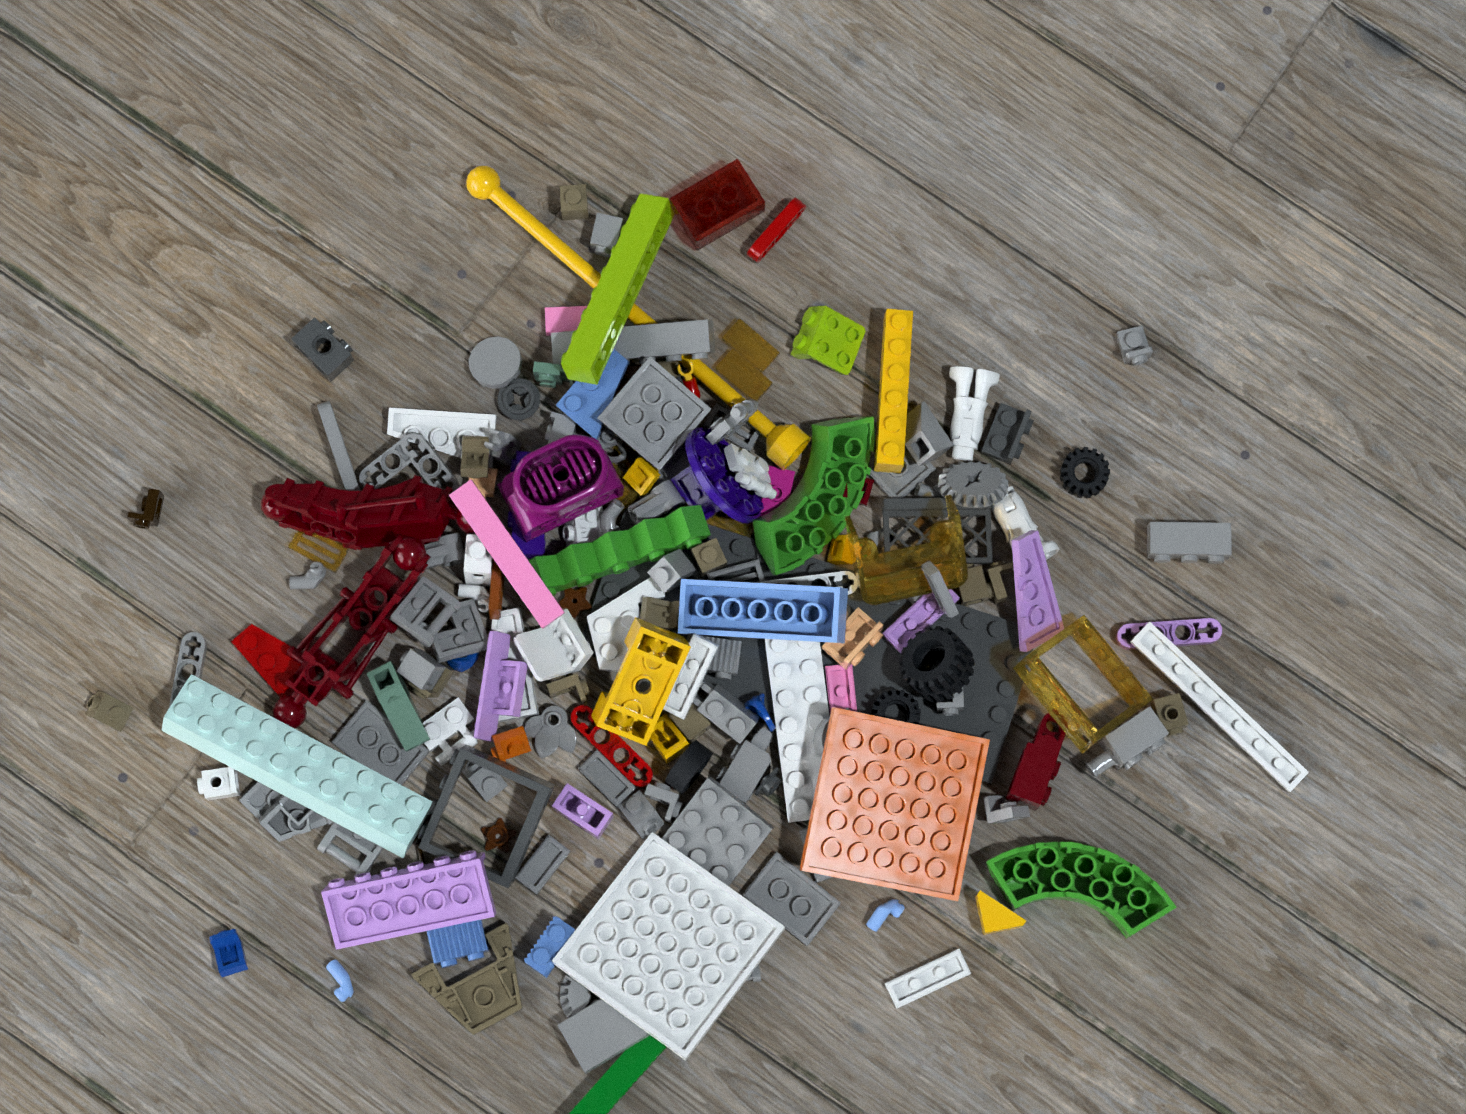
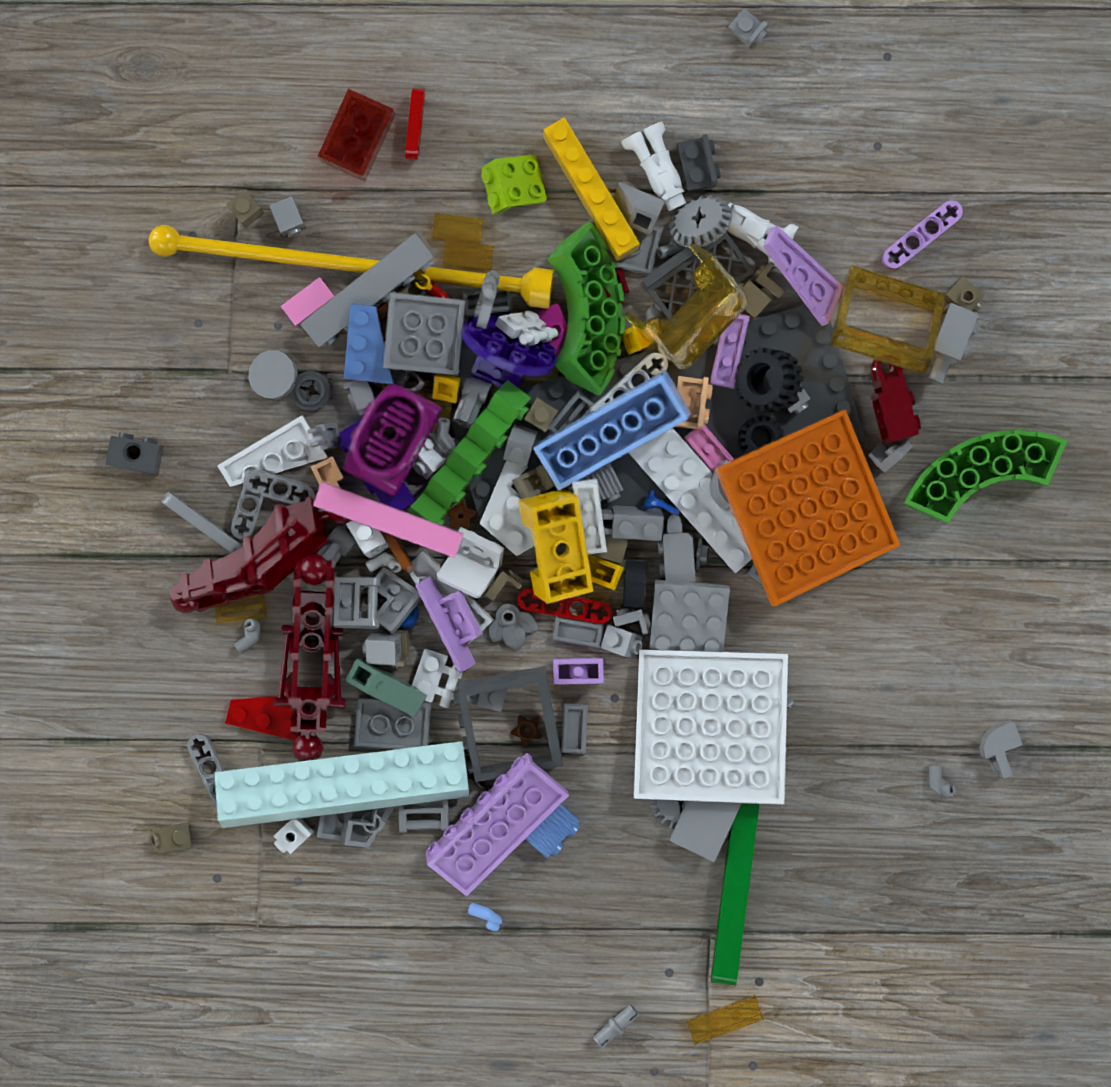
camera: 30 degrees left, 10 degrees up
(152, 509) = (92, 664): dark brown bracket -> none
(229, 952) = (389, 953): blue bracket -> none
(475, 457) = (310, 460): dark tan bracket -> none
(484, 995) = (598, 855): dark tan wing -> none
(510, 744) = (488, 657): orange bracket -> none
(548, 946) = (623, 786): medium blue brick -> none
(550, 374) = (323, 356): sand green plate -> none
(617, 289) = (328, 255): lime brick -> none
(791, 898) = (775, 628): light grey tile -> none
(882, 912) = (849, 596): light blue arm -> none
(927, 978) = (915, 617): white tile -> none
(939, 589) = (733, 321): light grey tile -> none
(995, 916) = (935, 538): yellow slope -> none
(1084, 488) = (787, 143): black tyre -> none
(1189, 541) = (891, 154): light grey brick -> none
(1219, 707) = (997, 265): white plate -> none

